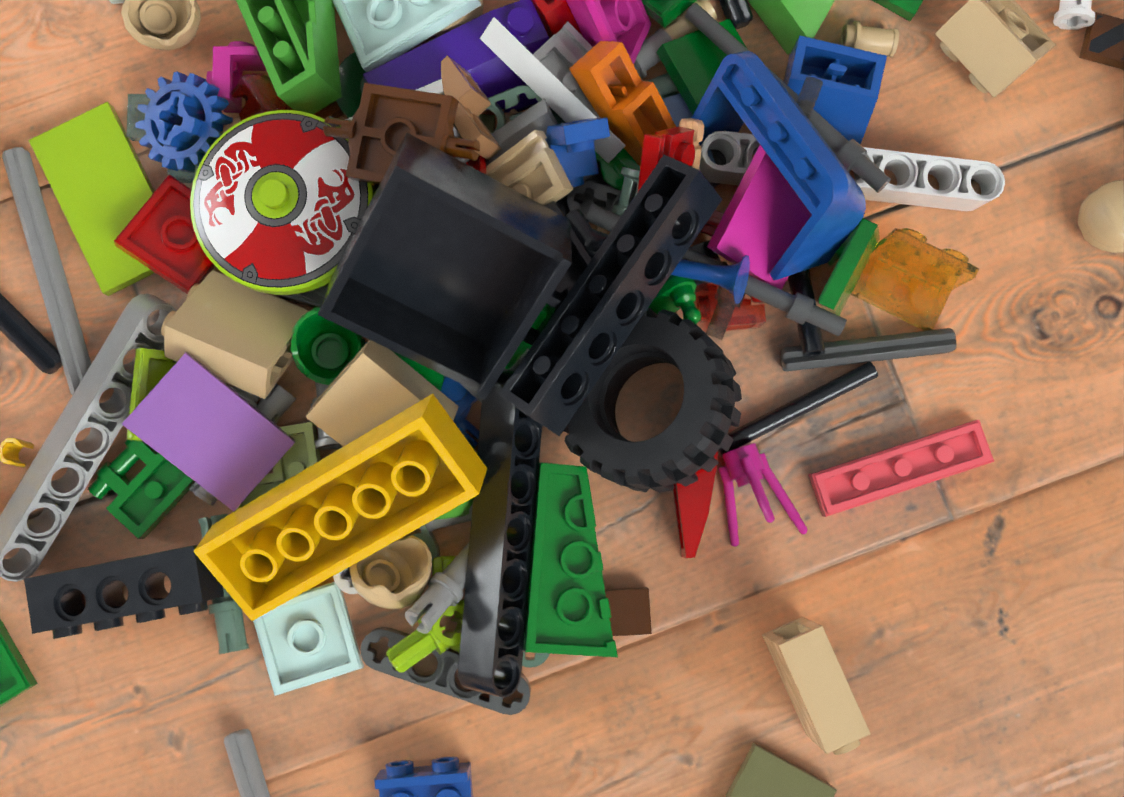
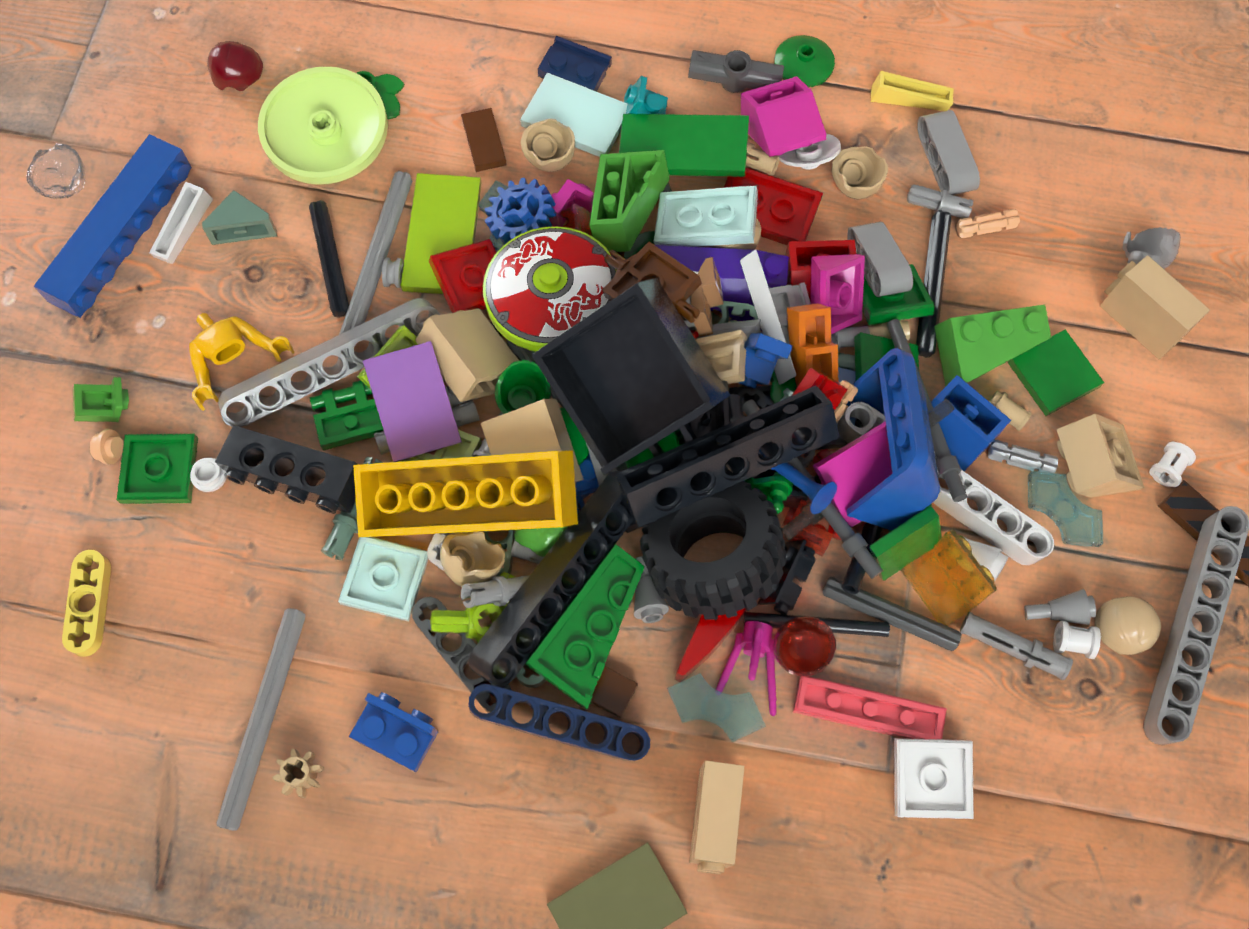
camera: 30 degrees right, 15 degrees down
(35, 648) = (207, 475): none -> white plate
(79, 49) = (483, 139): none -> reddish brown tile
(81, 282) = (392, 272): none -> light grey bush
(606, 495) = (648, 603): none -> light grey cone
(616, 689) = (578, 721): none -> dark blue beam
(742, 352) = (798, 565): none -> black hinge
(762, 559) = (733, 713): none -> clear light blue tile
(800, 446) = (804, 646): none -> clear red hair
(916, 86) = (1022, 457): none -> light grey axle
(938, 227) = (988, 556): none -> white cone
(1003, 127) = (1075, 520): none -> clear light blue tile
(1005, 501) = (933, 778): none -> white tile
(1033, 306) = (1019, 647): none -> light grey pin
(1053, 229) = (1071, 608): none -> light grey cone
(1074, 263) = (1077, 639): none -> white bush

